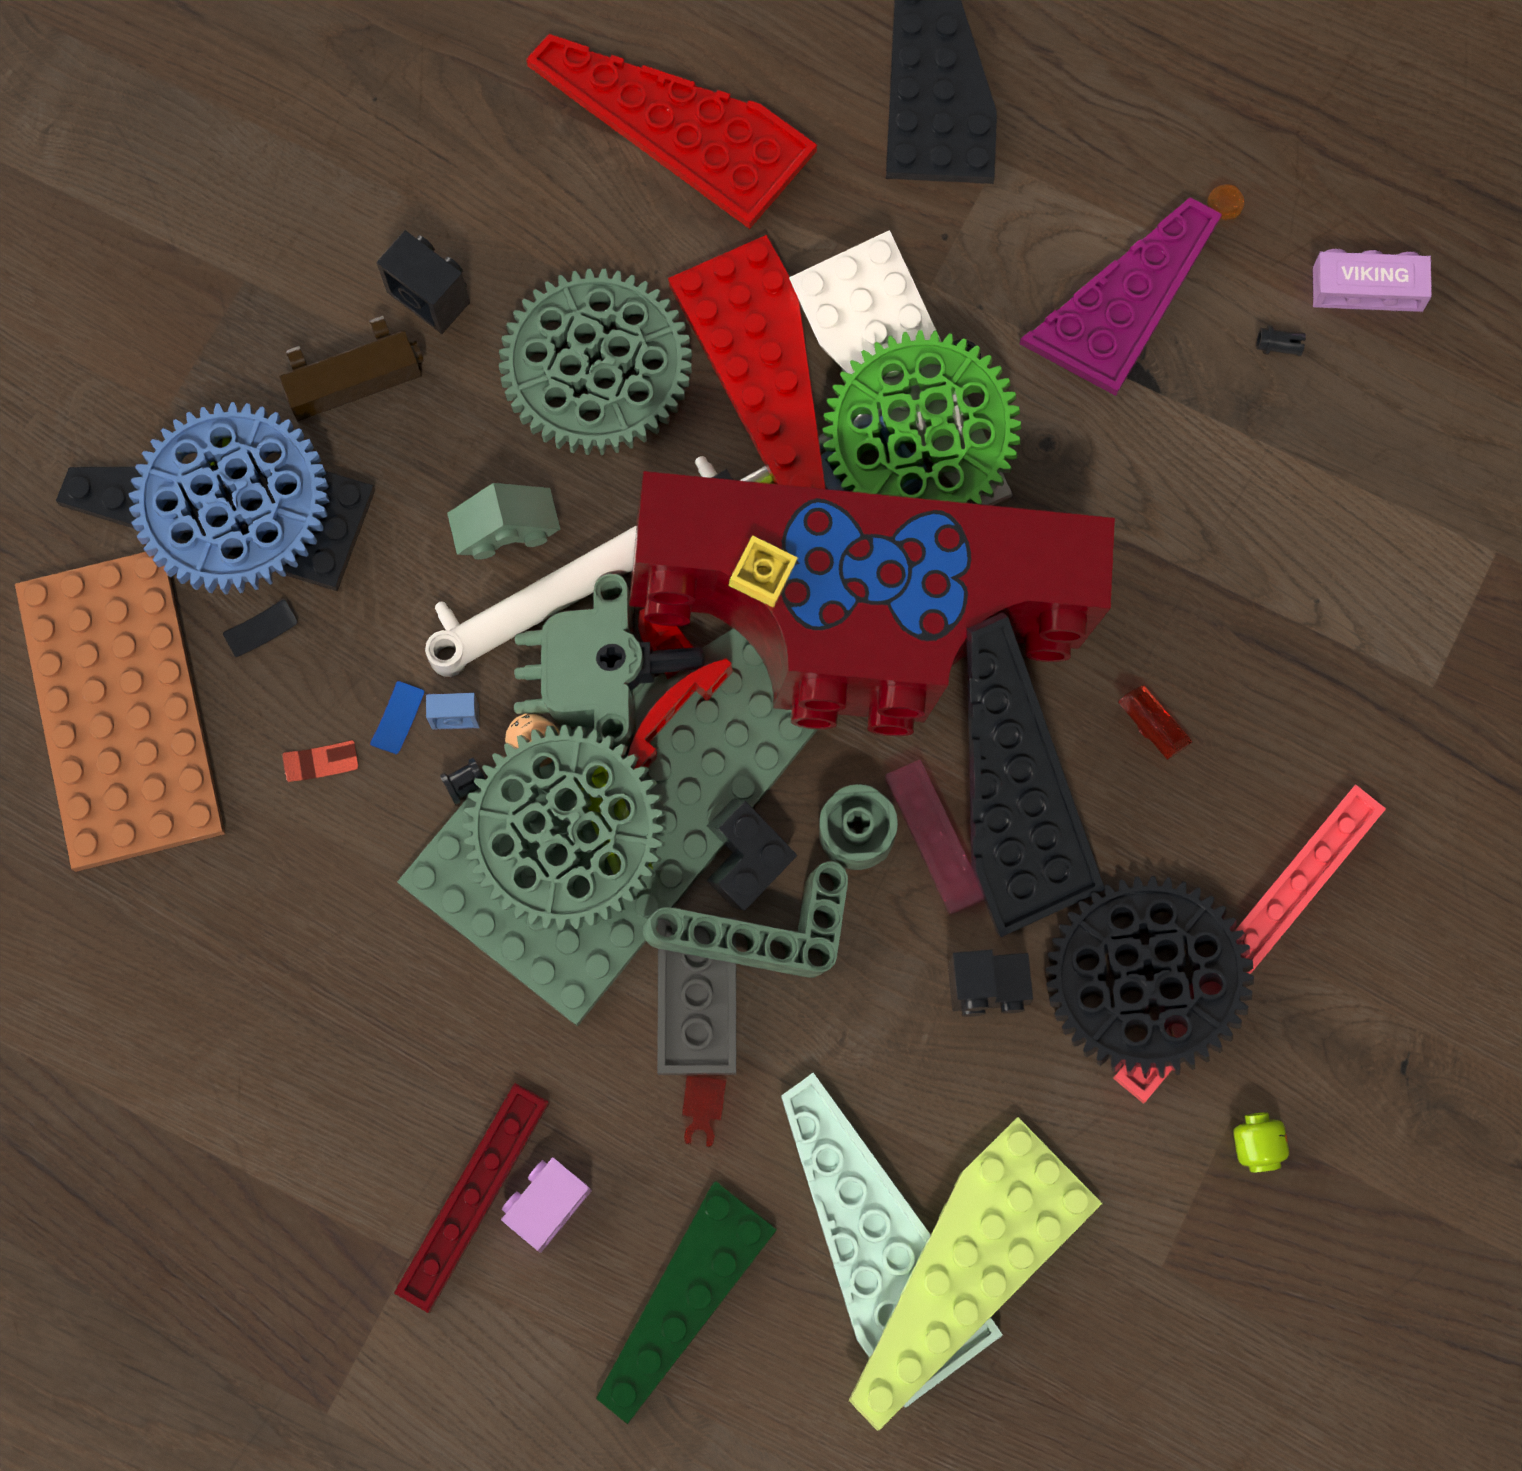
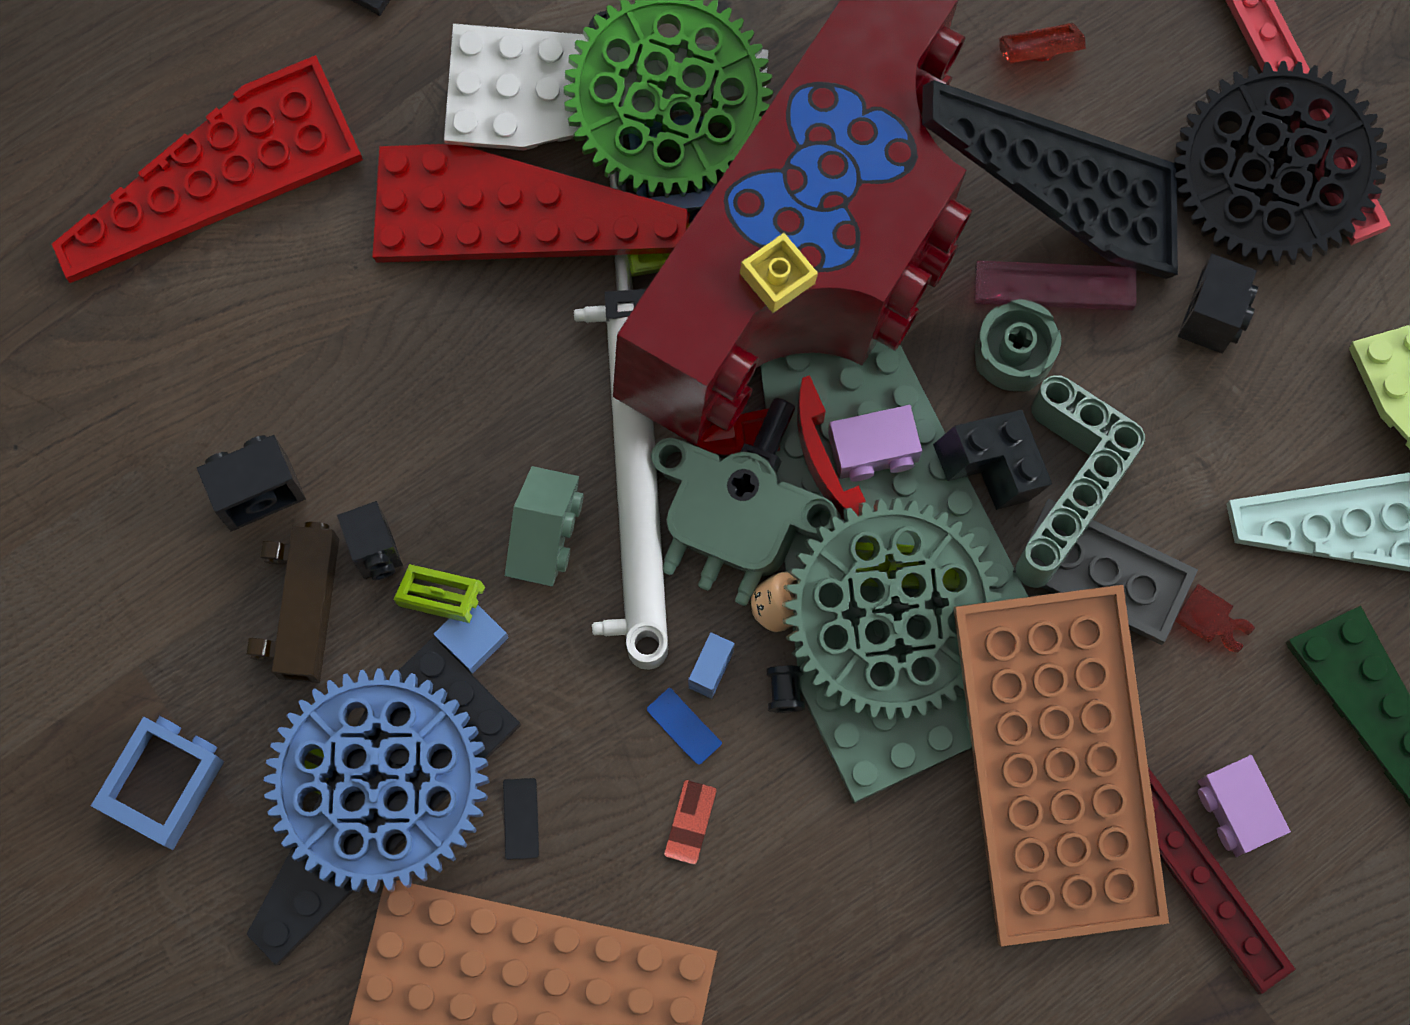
camera: 65 degrees left, 0 degrees up
(155, 371) = (190, 799): none -> medium blue window
(388, 514) = (472, 641): none -> medium blue piece
(411, 492) = (465, 601): none -> lime tile
(420, 395) = (370, 541): none -> black brick
(501, 1029) = (1061, 765): none -> nougat plate
(620, 418) = (487, 367): sand green gear -> none
(705, 748) = (875, 443): none -> lavender brick

